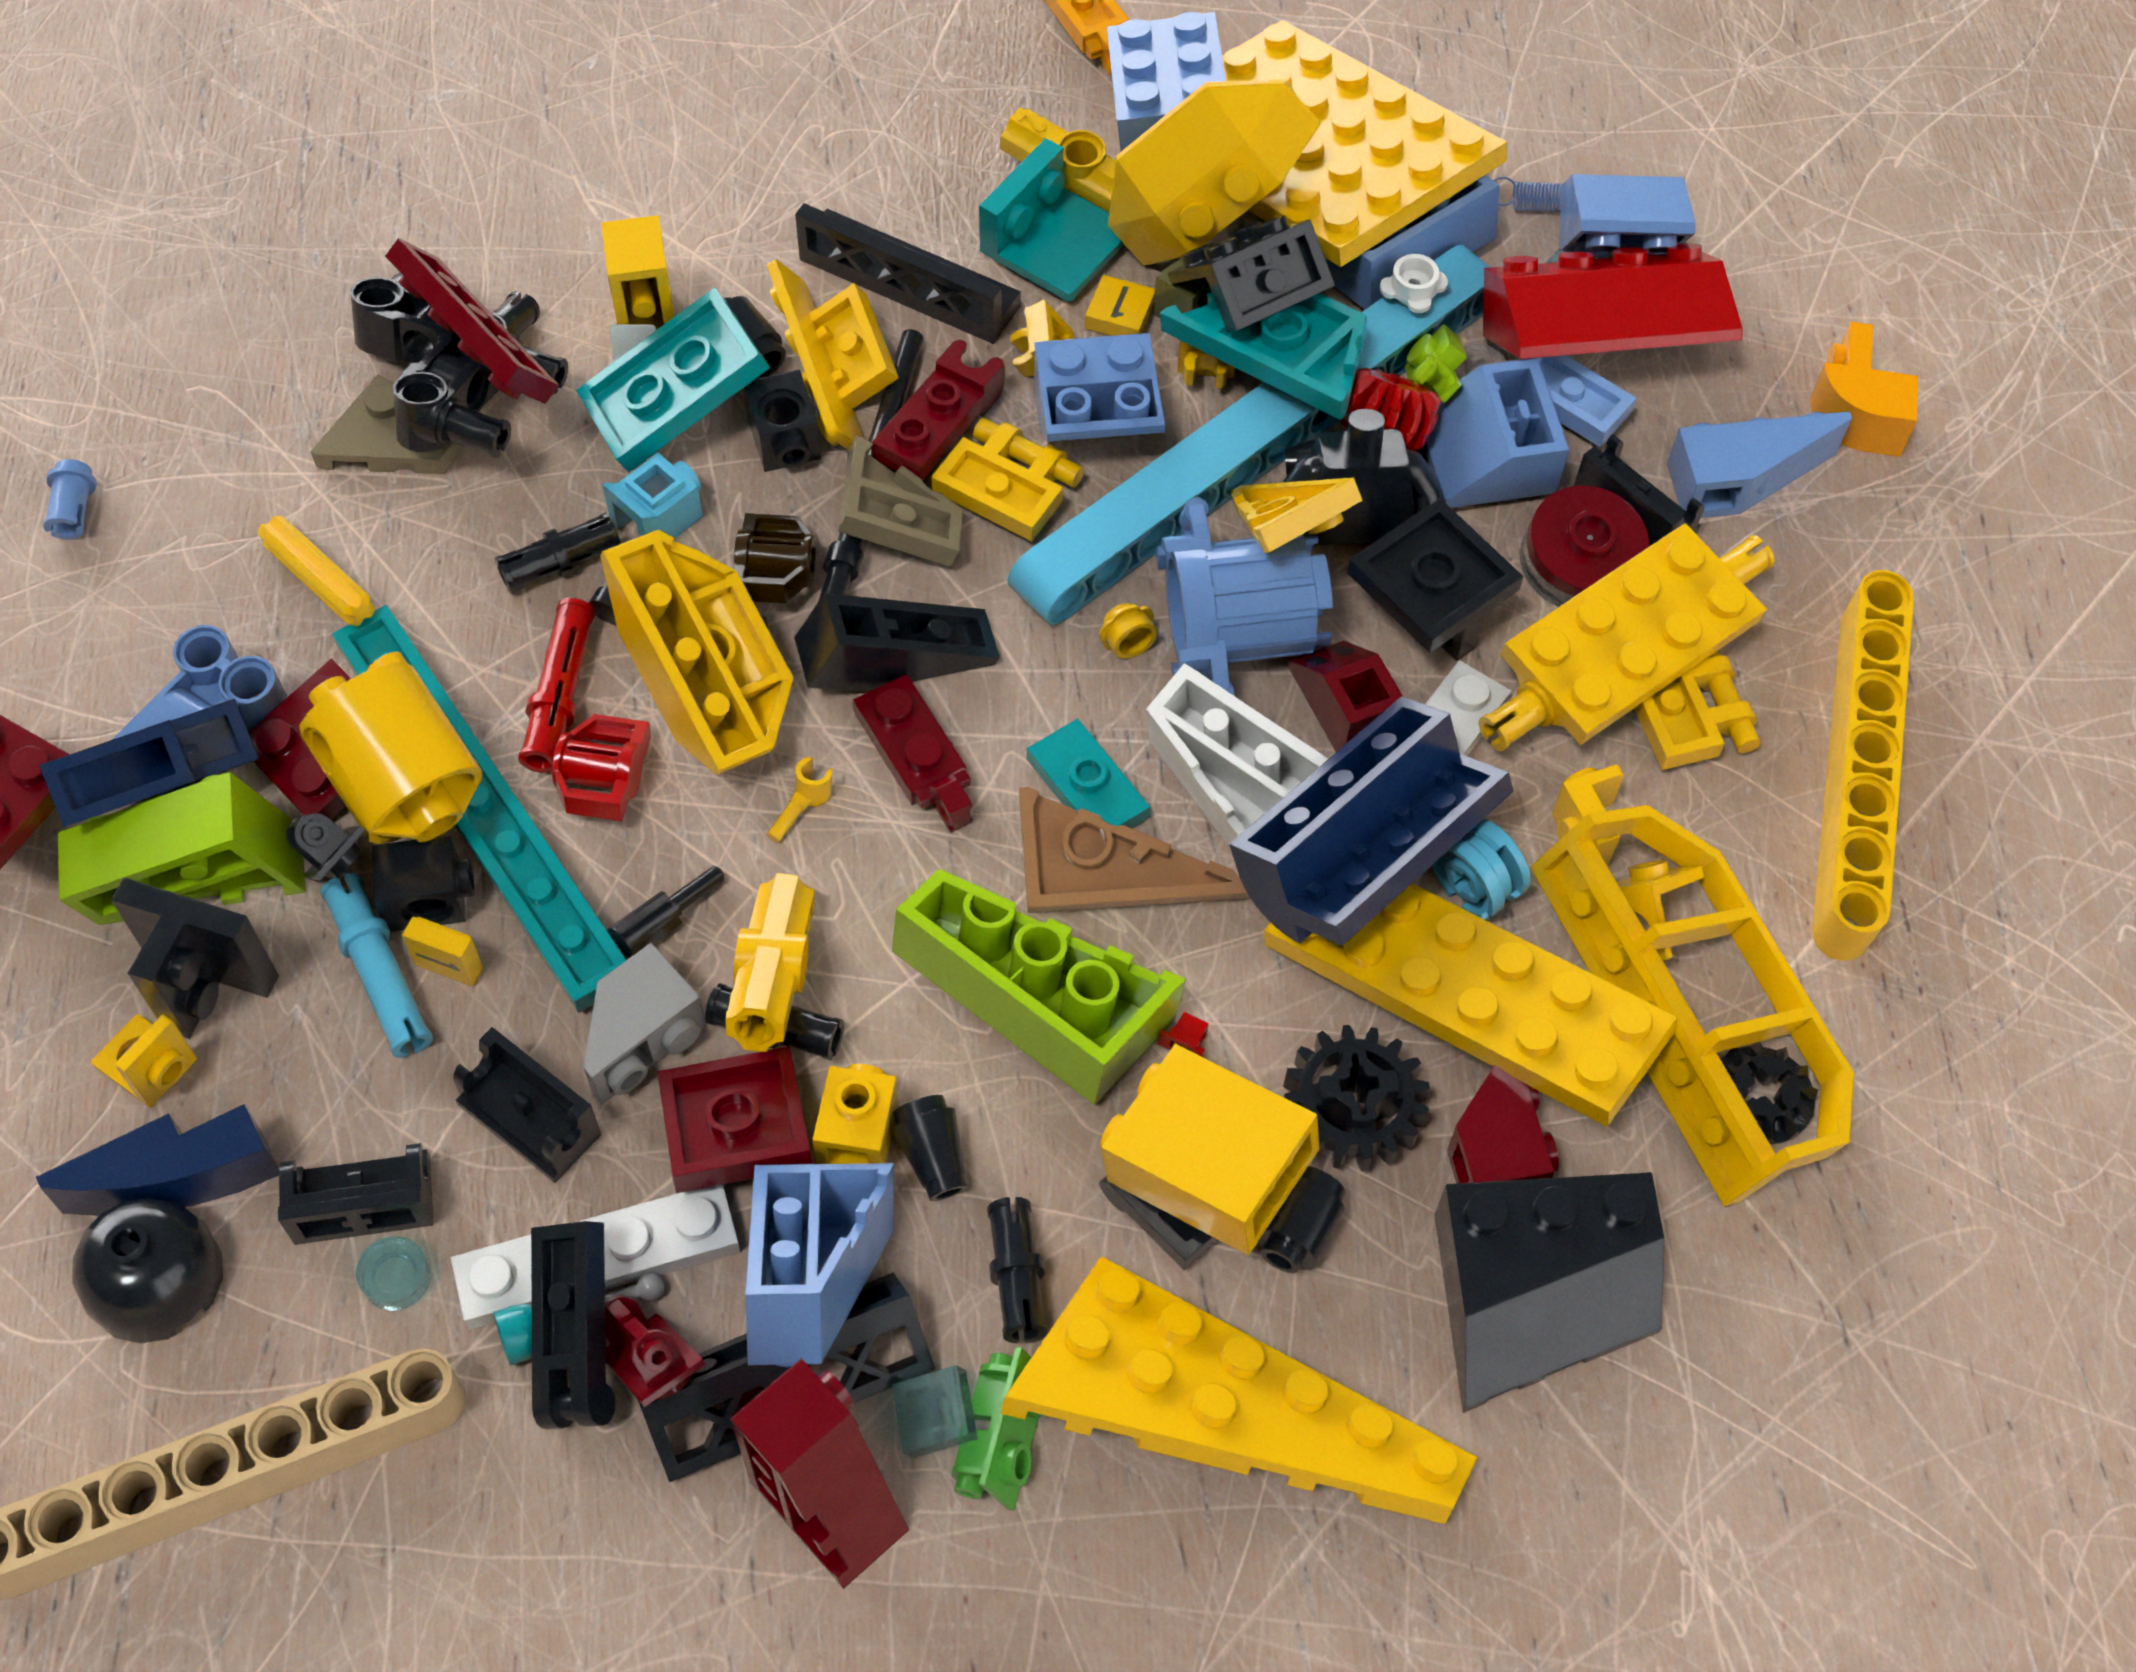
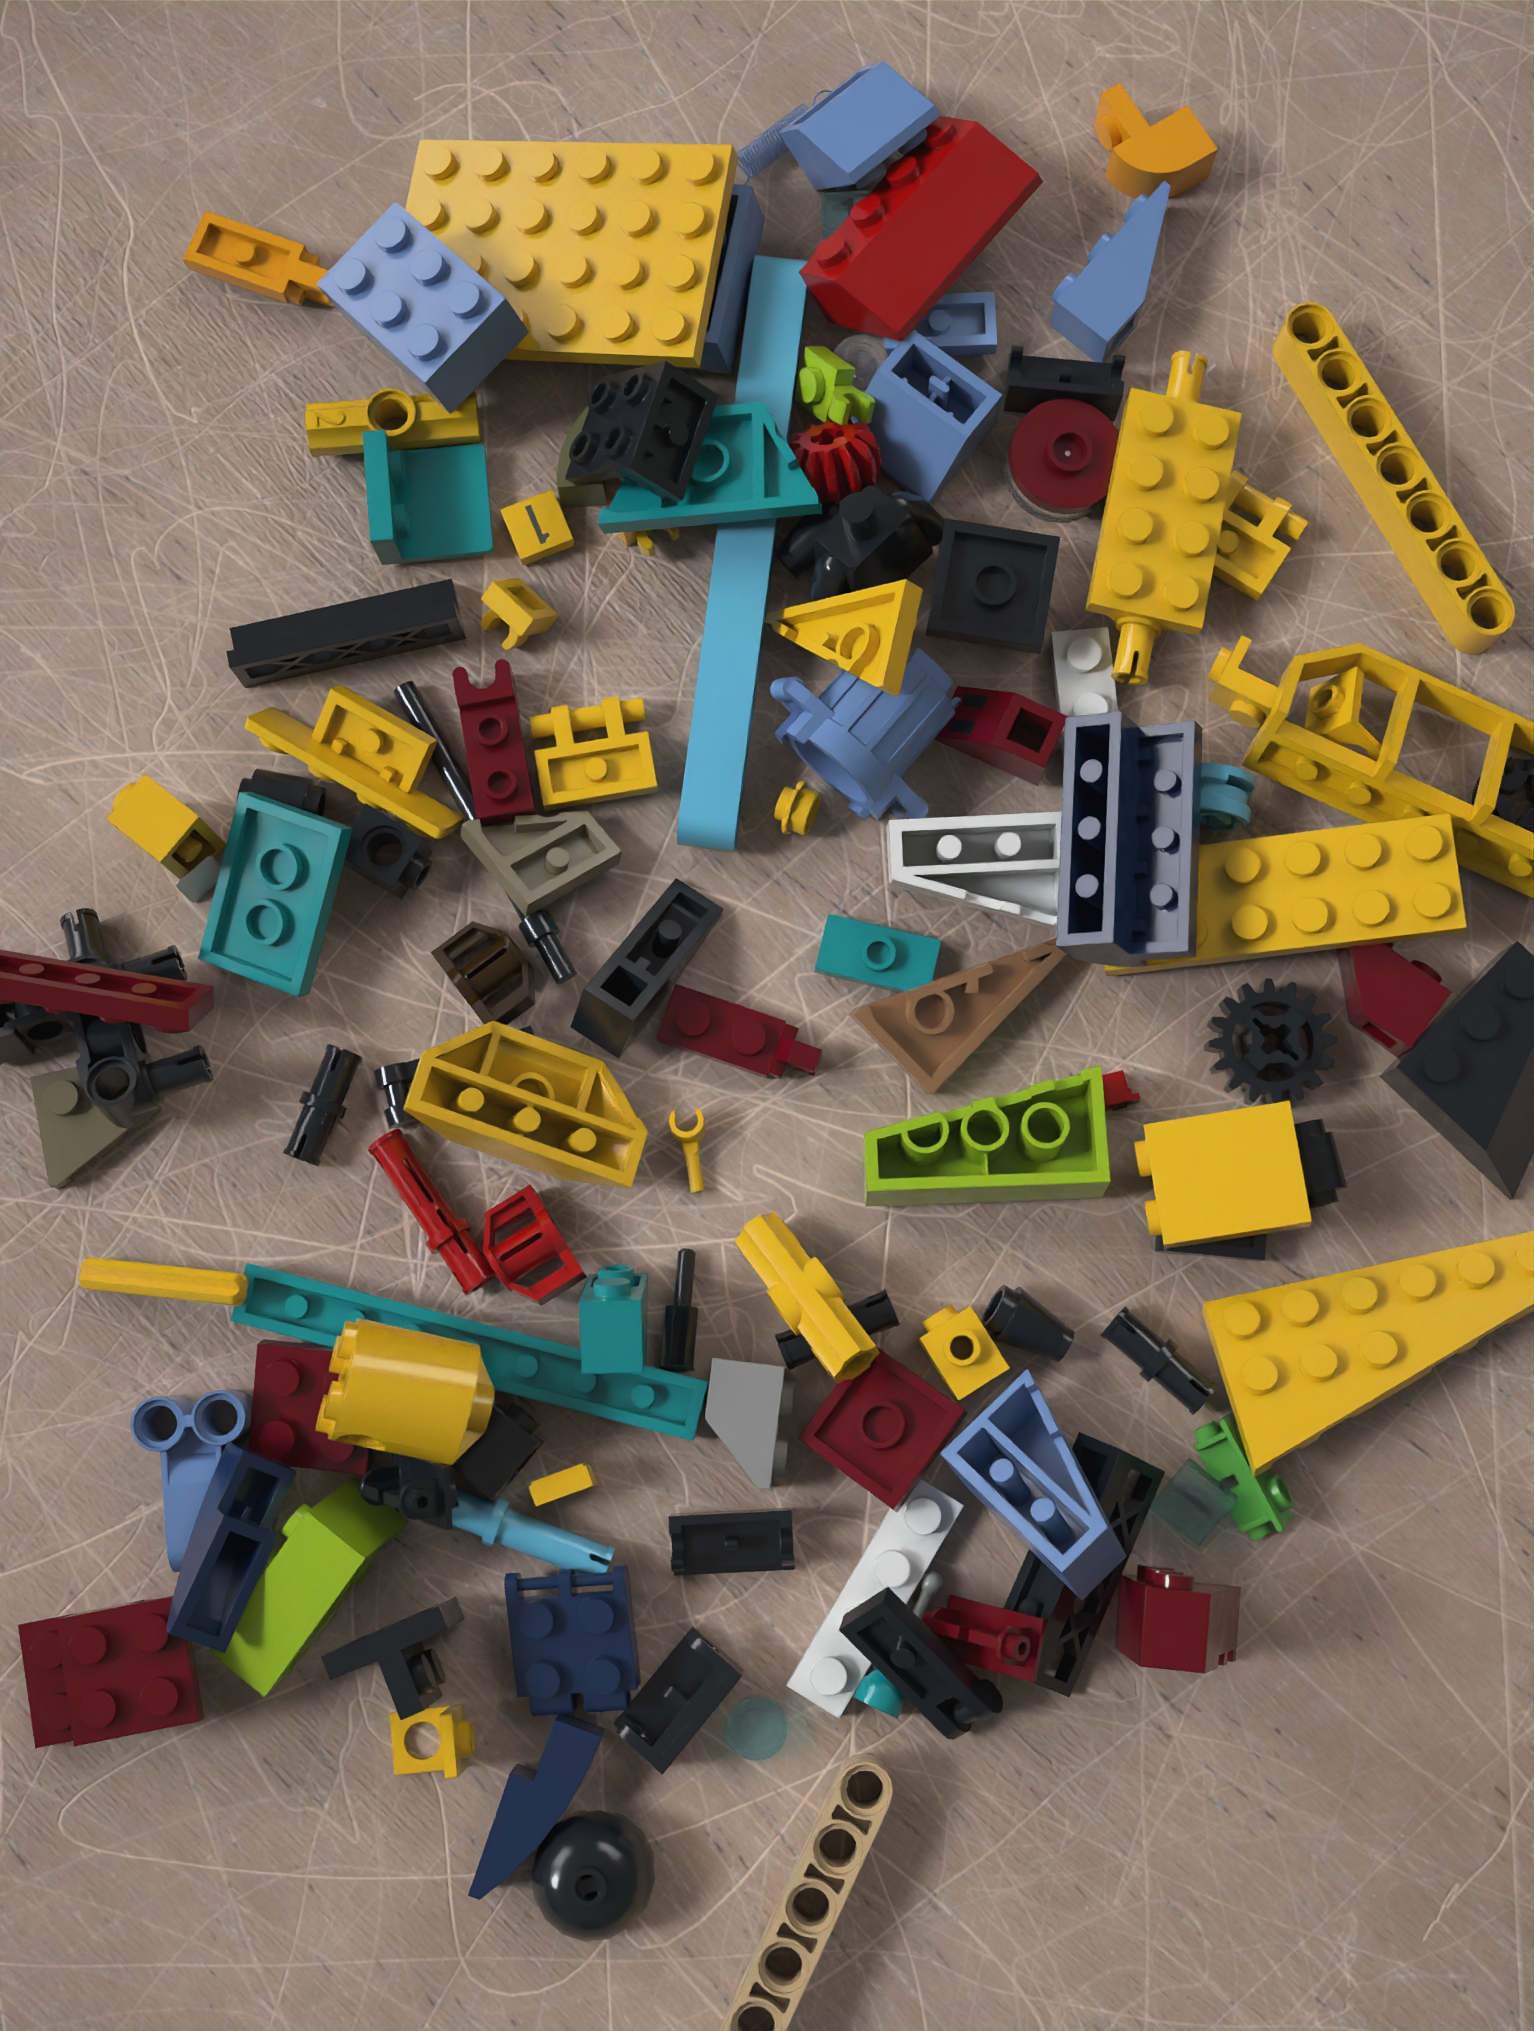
camera: 35 degrees left, 20 degrees up
(326, 1074) = (573, 1641): none -> dark blue plate
(604, 850) = (614, 1321): none -> teal slope
(656, 497) = (356, 1001): medium azure window -> none
(1097, 387) = (603, 629): medium blue slope -> none
(1206, 165) = (531, 362): yellow wedge -> none
(1414, 282) = (759, 316): white plate -> none

